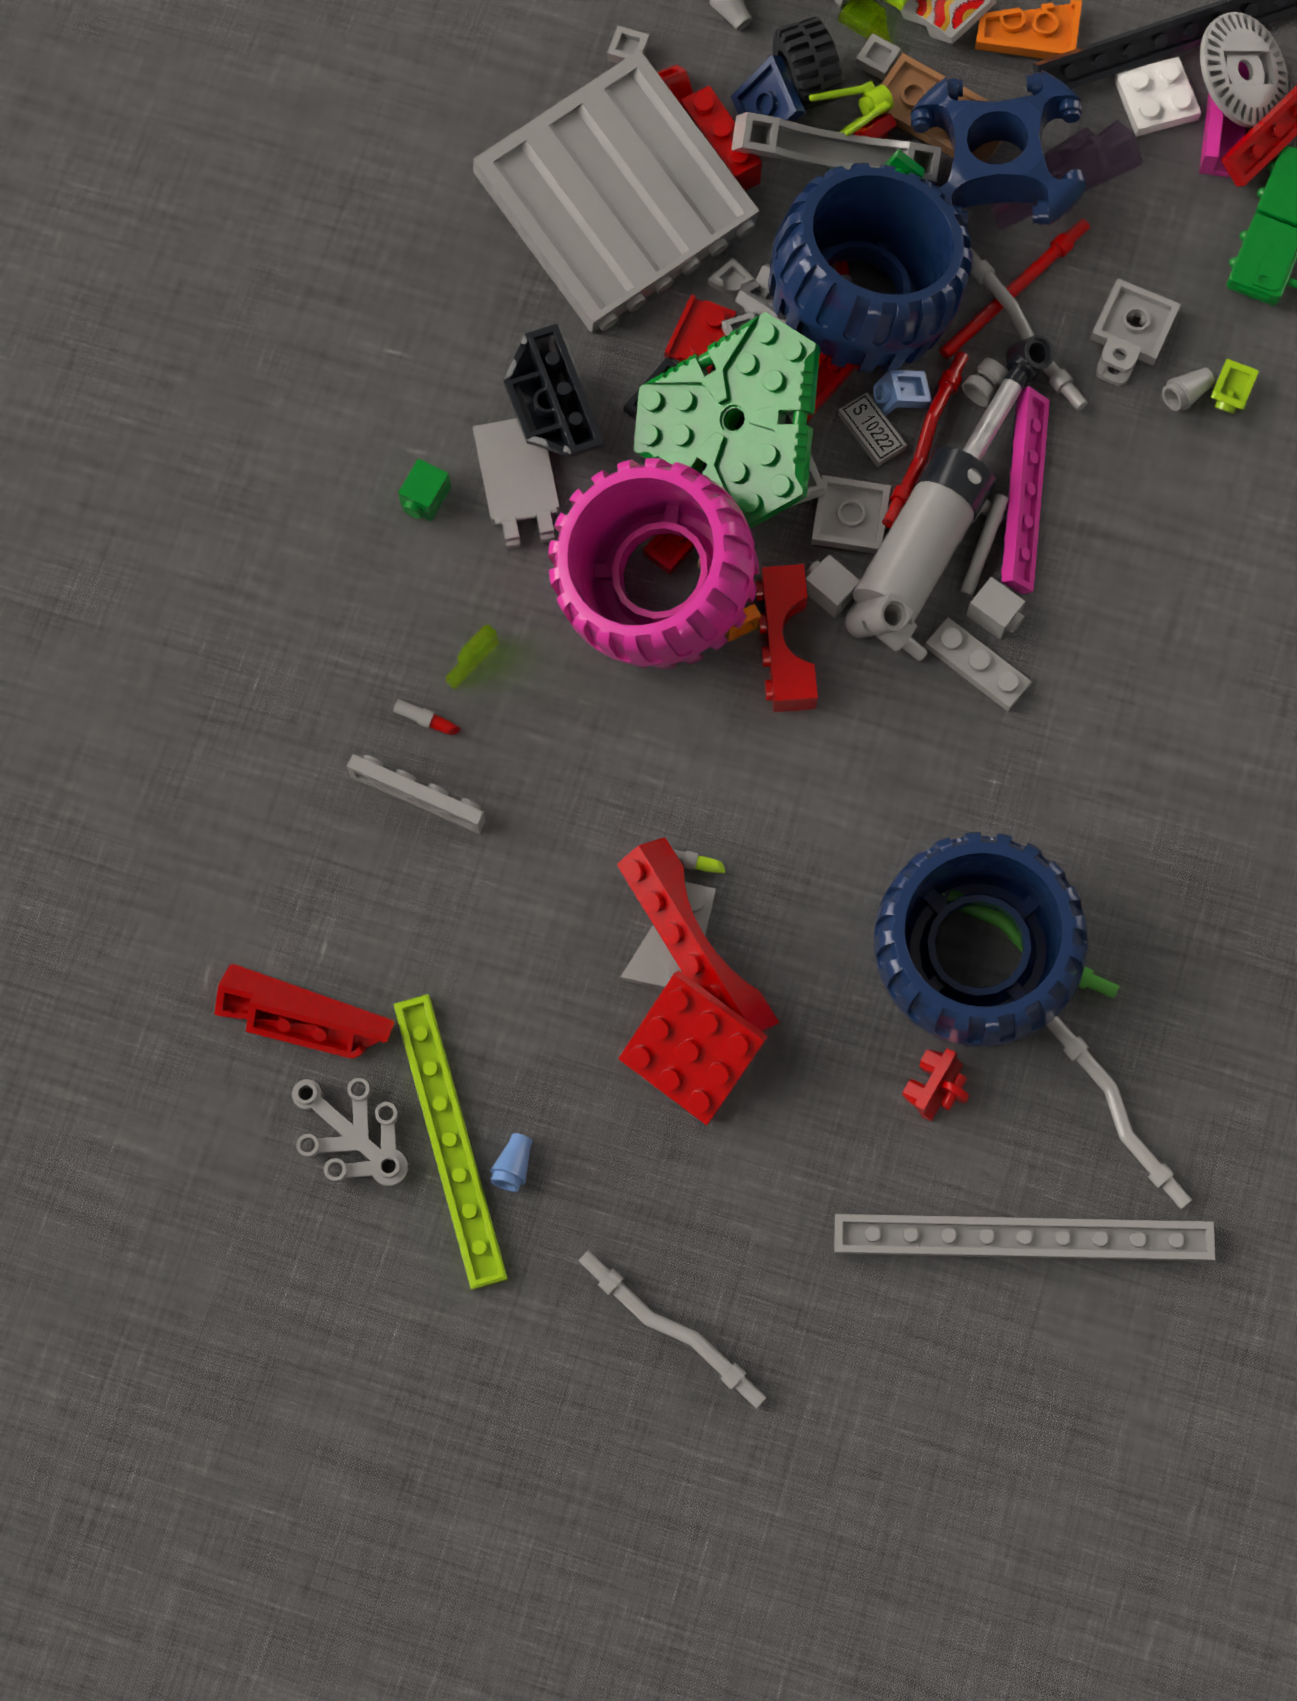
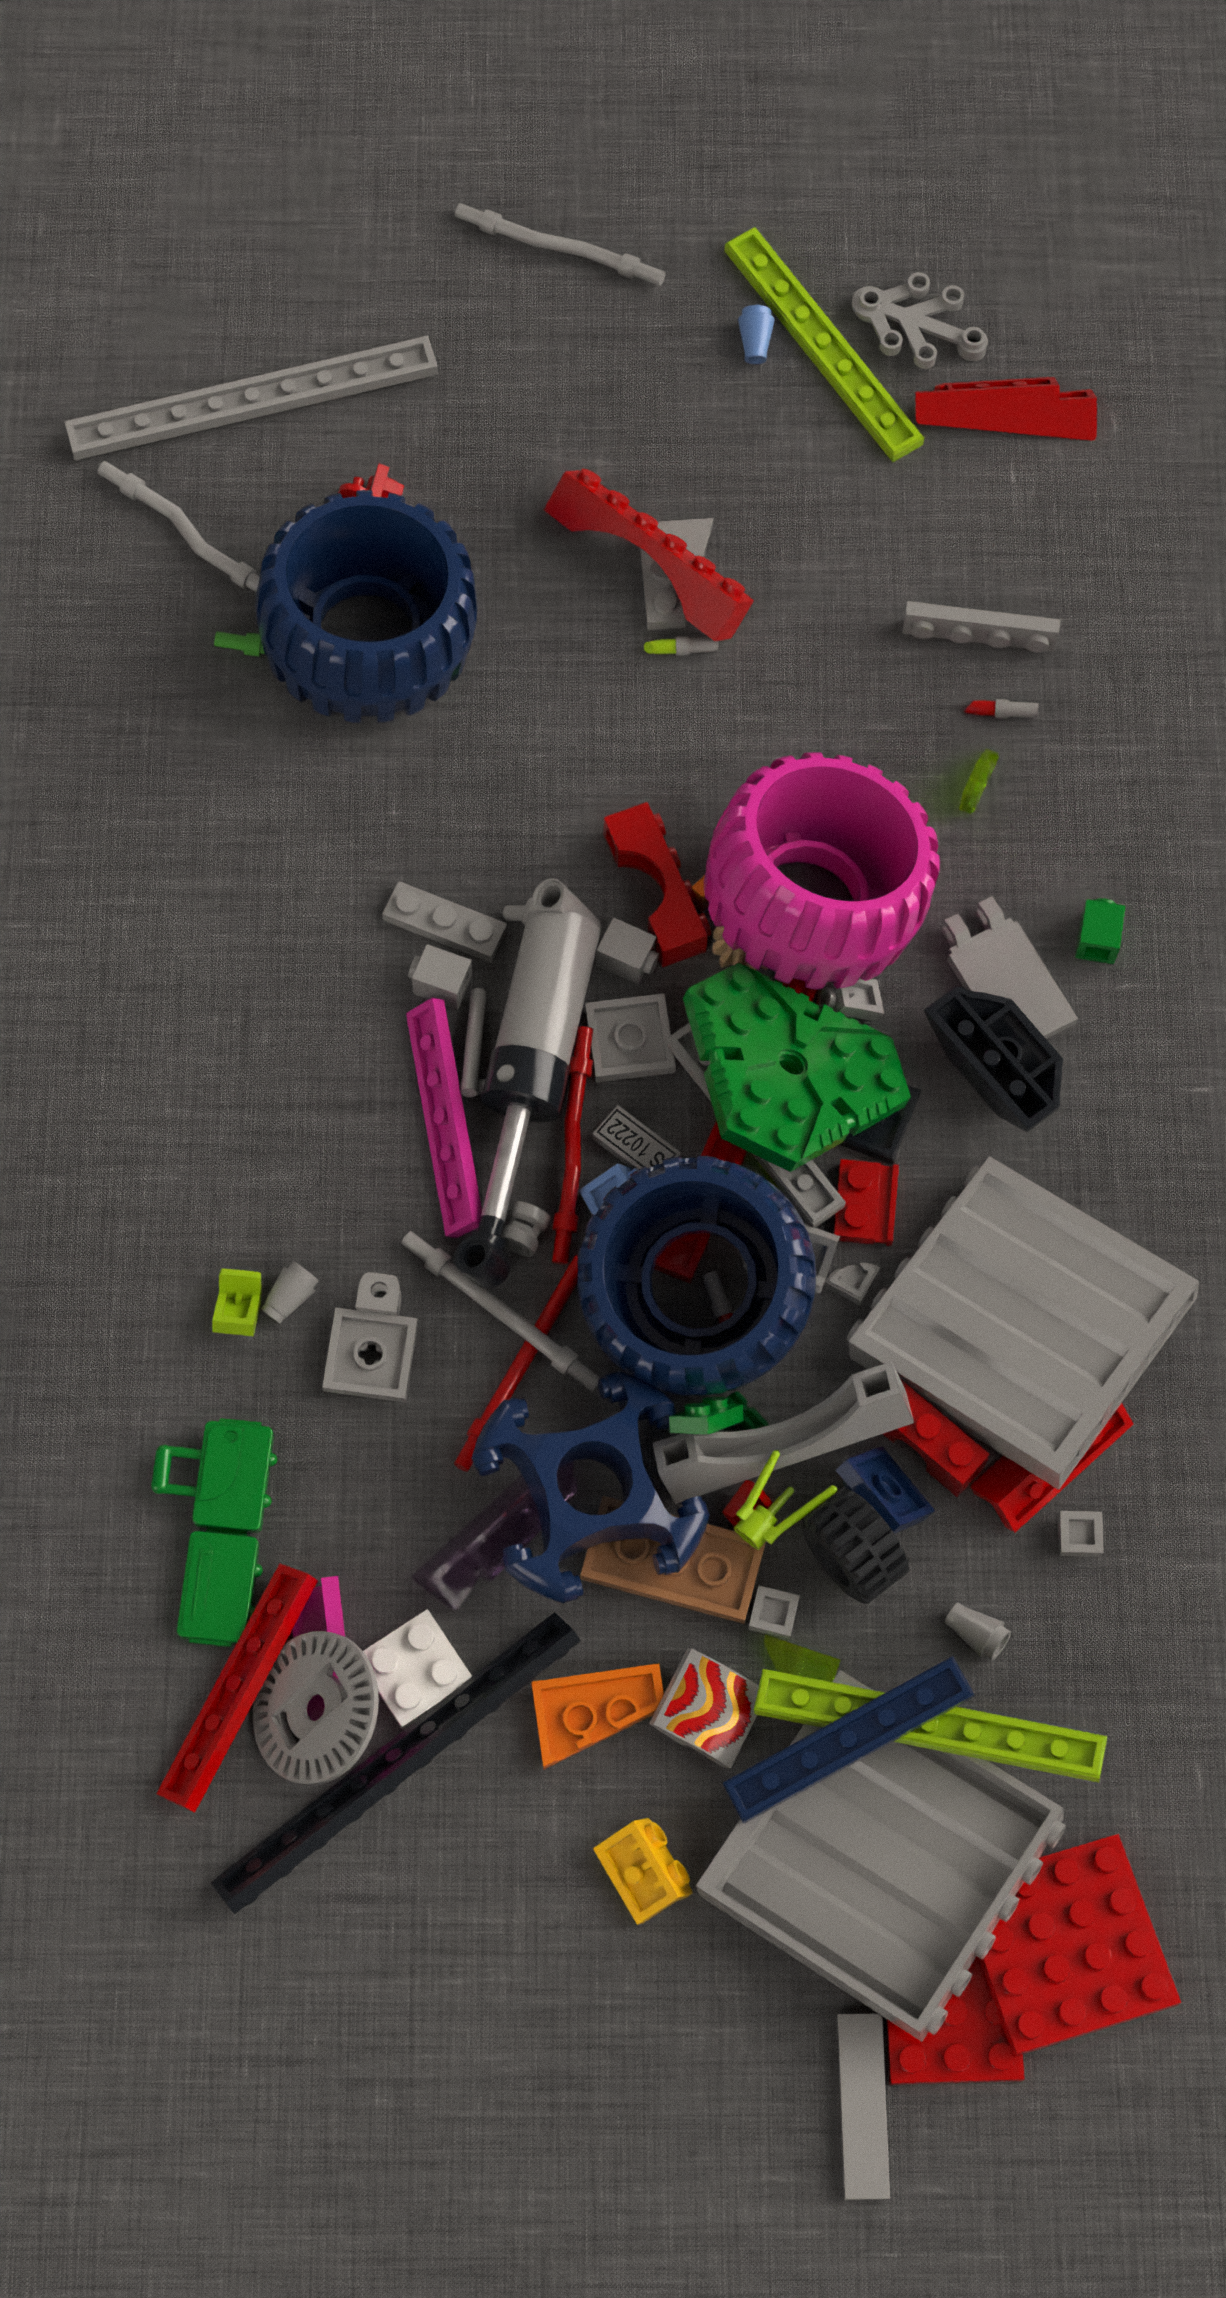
camera: 160 degrees right, 5 degrees down
(692, 1047) = (620, 457): red plate -> none

